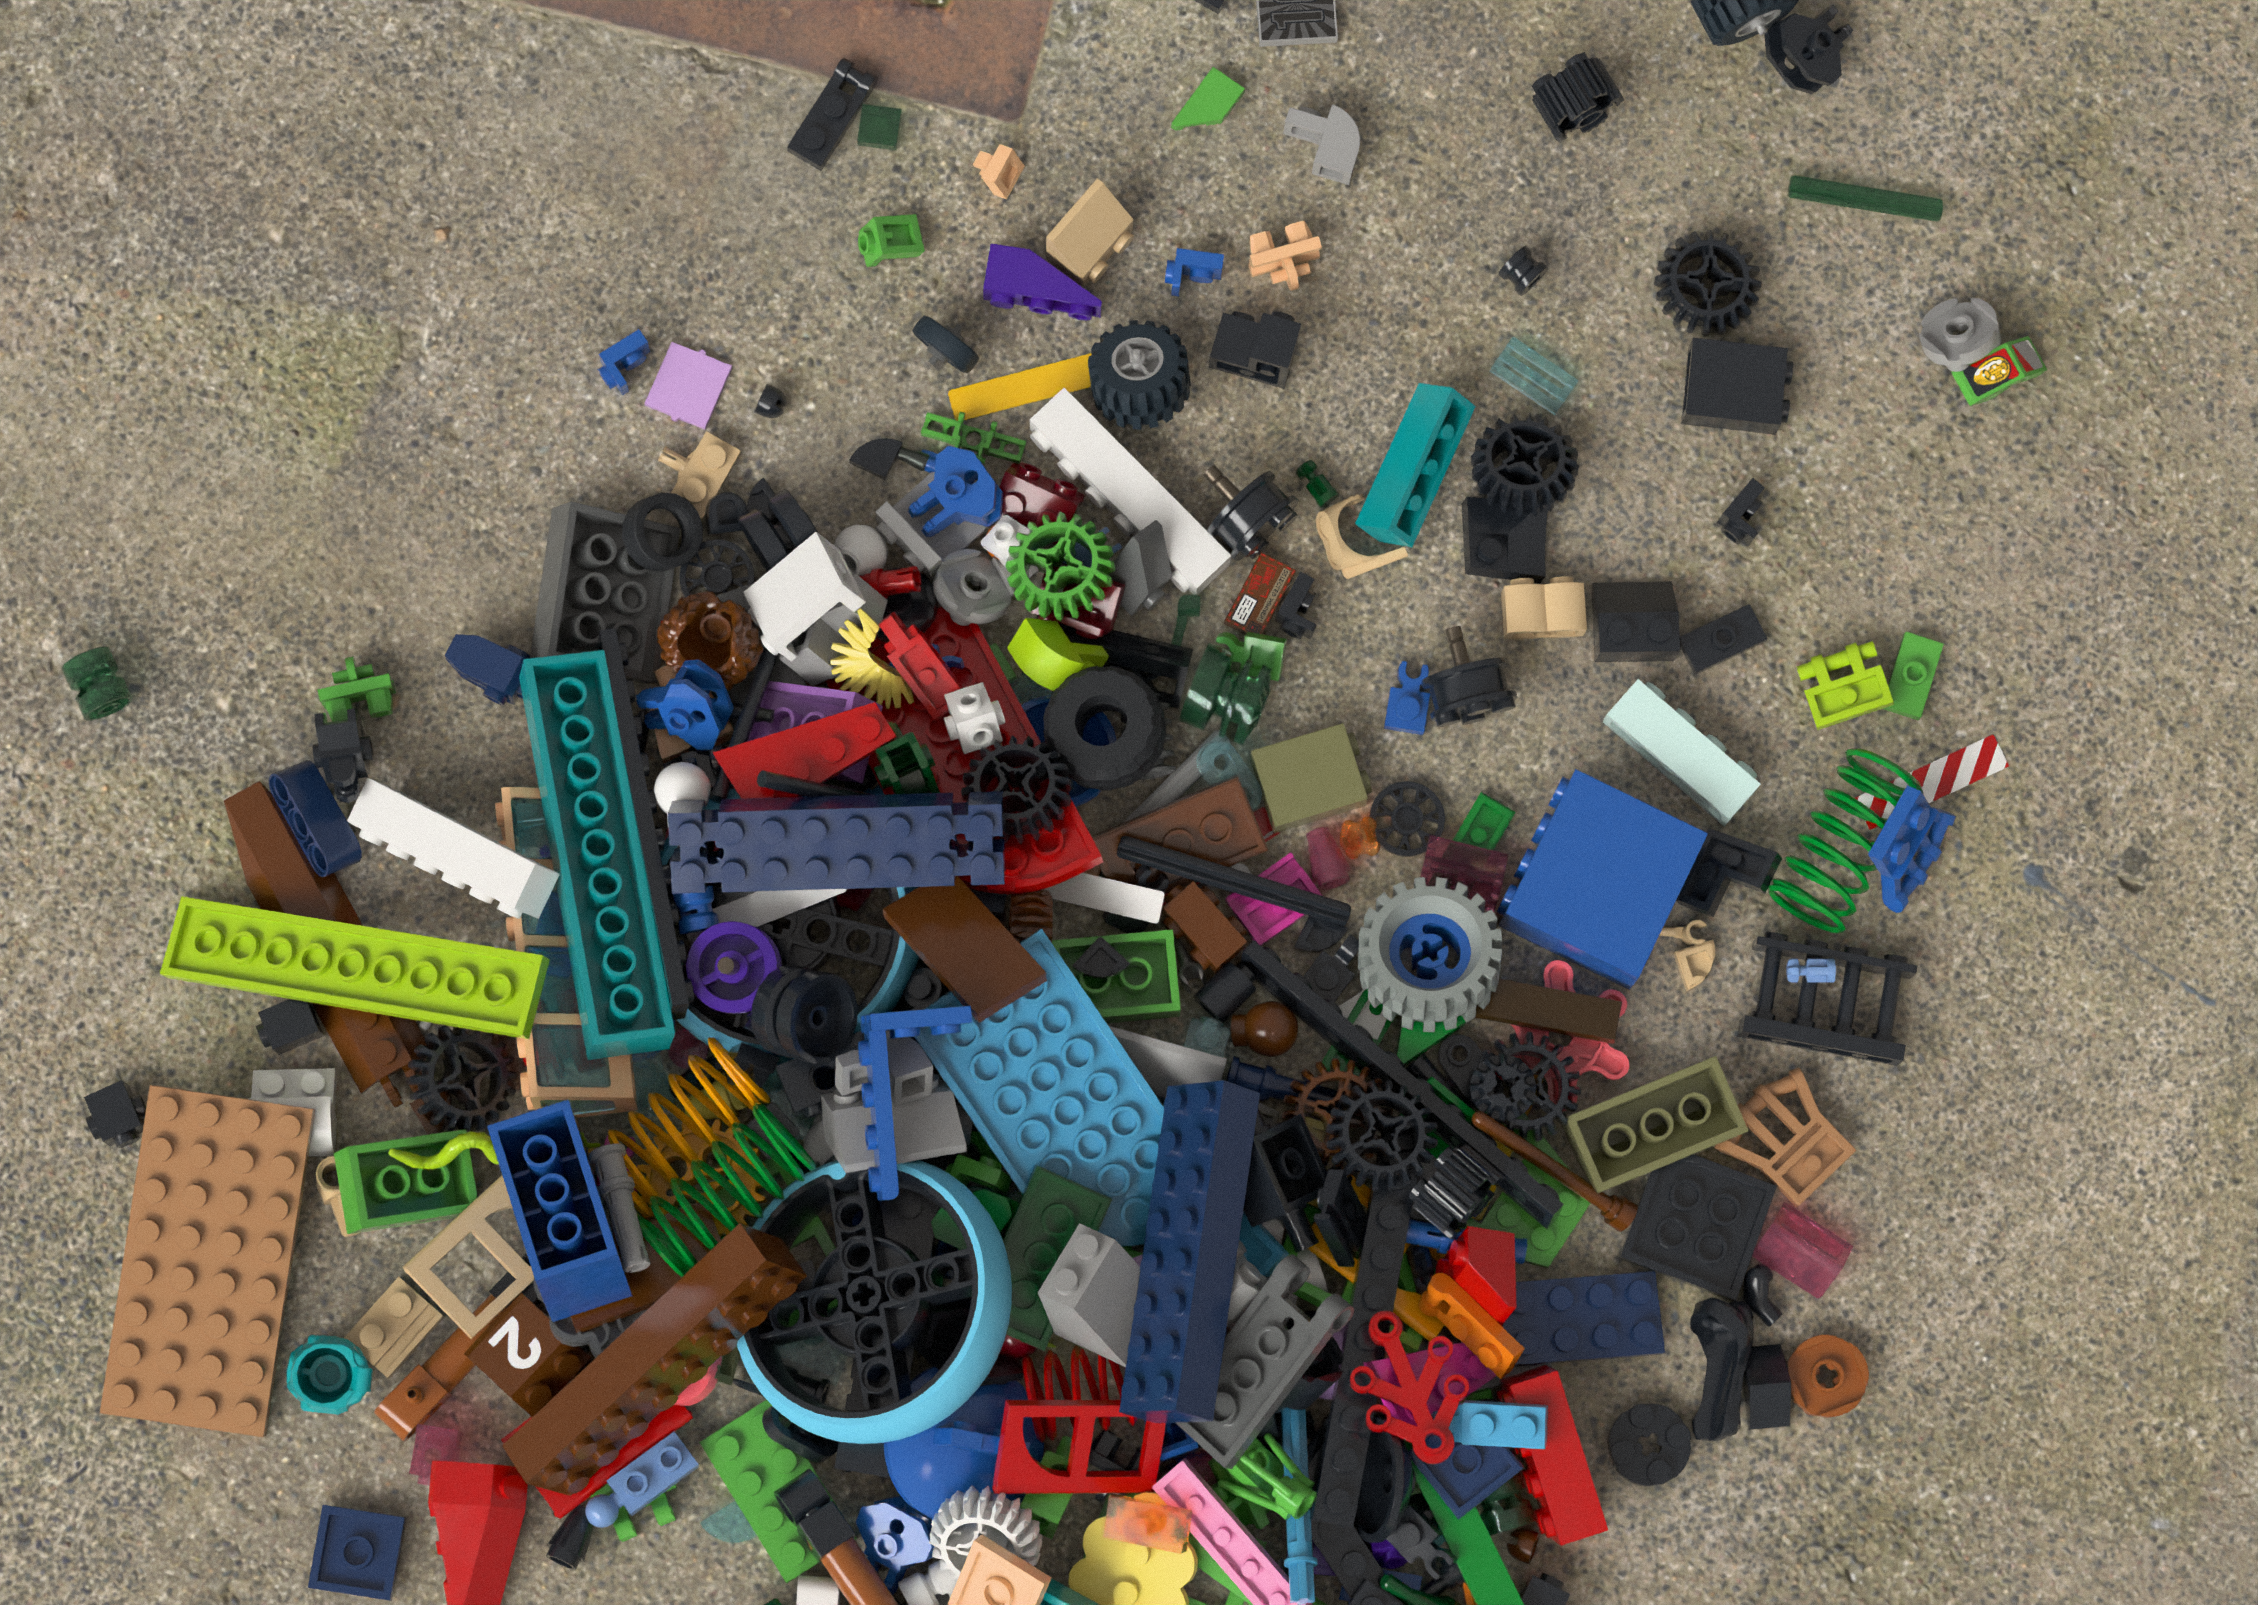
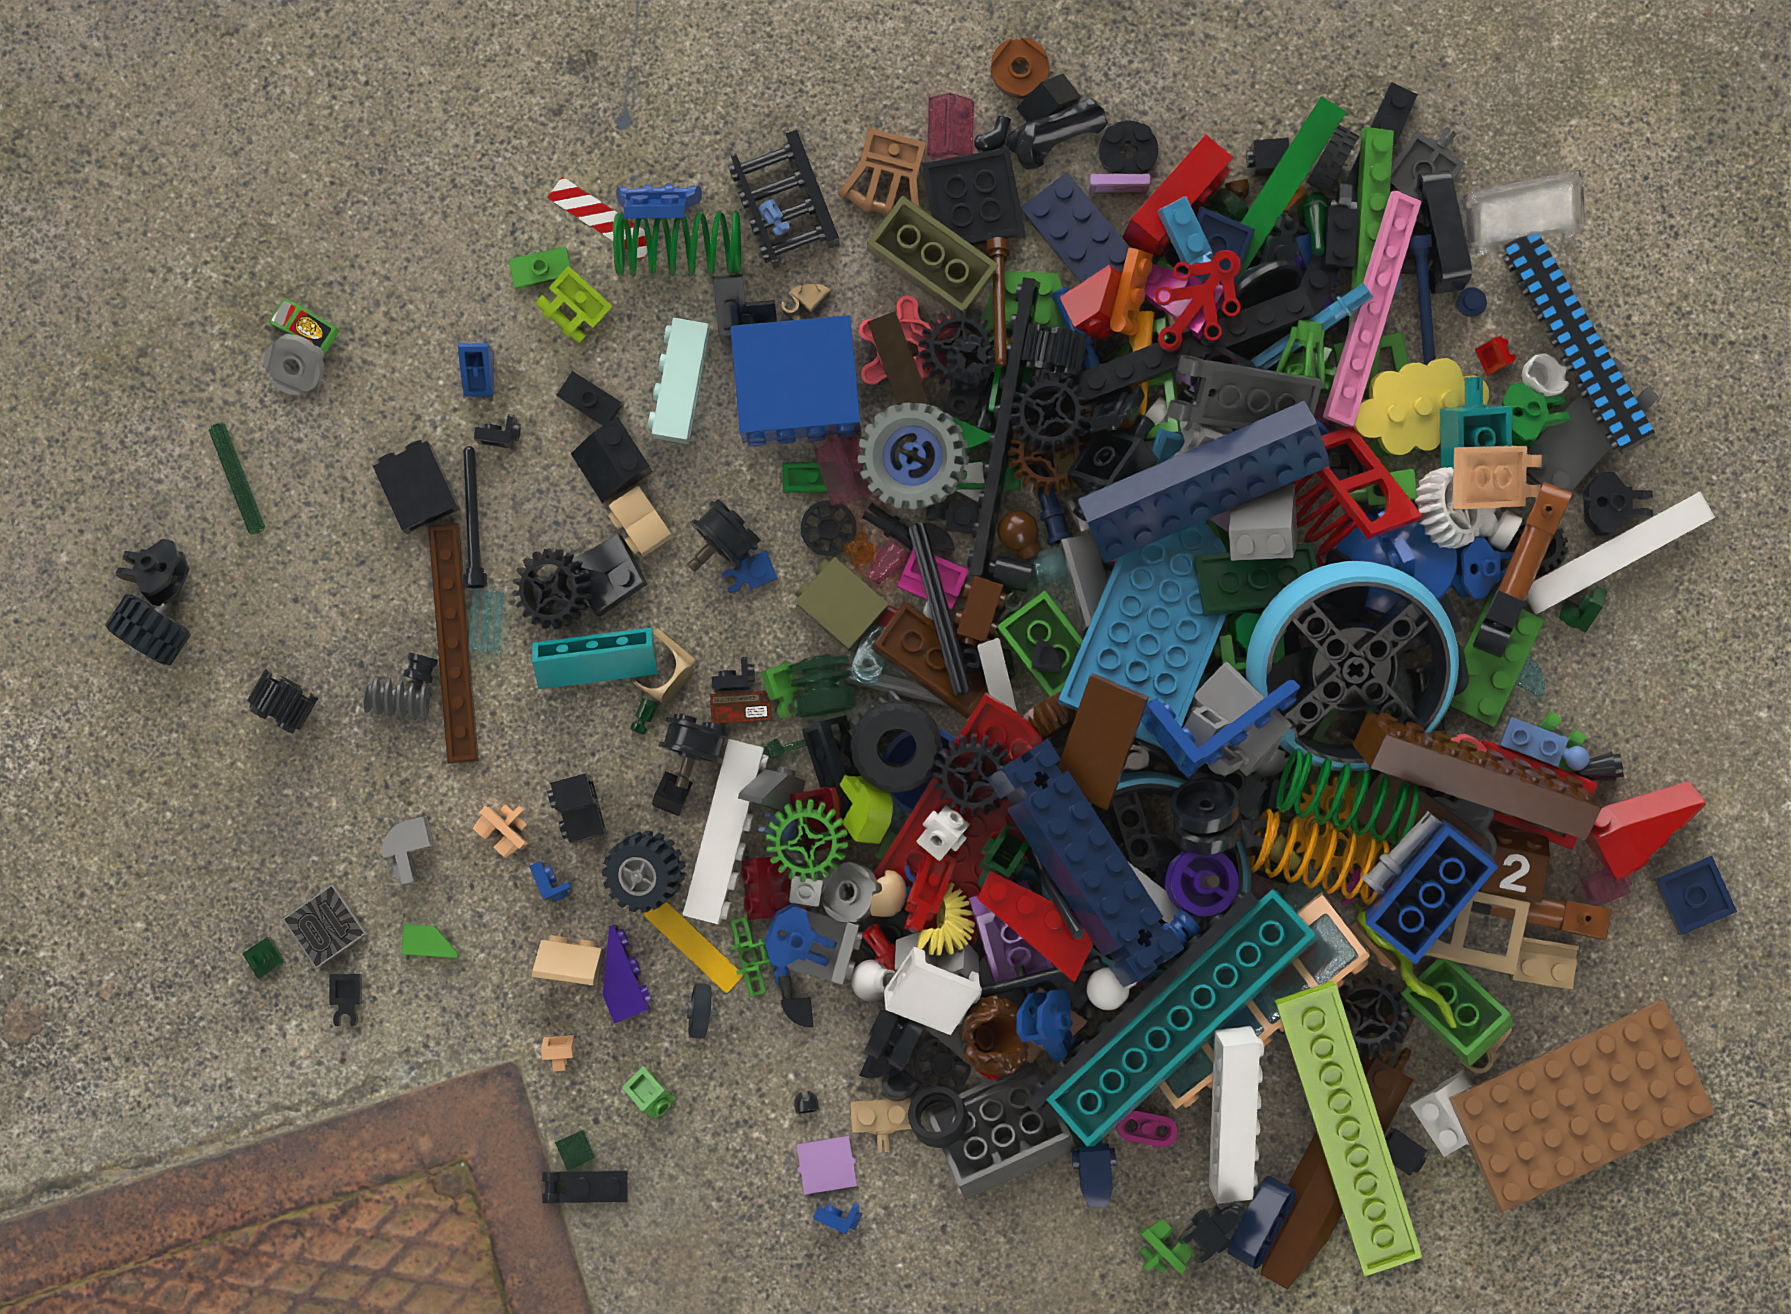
camera: 115 degrees left, 5 degrees up
(116, 1115) = (1527, 1225): black brick -> none
(328, 1374) = (1603, 981): teal helmet -> none
(498, 755) = (1146, 1129): none -> dark pink plate
(940, 623) = (892, 896): none -> tan hair
(1147, 1523) = (1377, 415): clear orange tile -> none
(1205, 455) = (670, 797): none -> black slope
(1368, 889) = (889, 524): none -> black pin
(1502, 224) = (397, 699): none -> dark grey piece
(1530, 324) = (453, 643): none -> reddish brown tile
(1595, 393) = (475, 573): none -> black piece
(1614, 1405) = (1119, 183): none -> lavender tile
(1725, 282) = (368, 539): black gear -> none
(1832, 532) = (476, 369): none -> blue slope

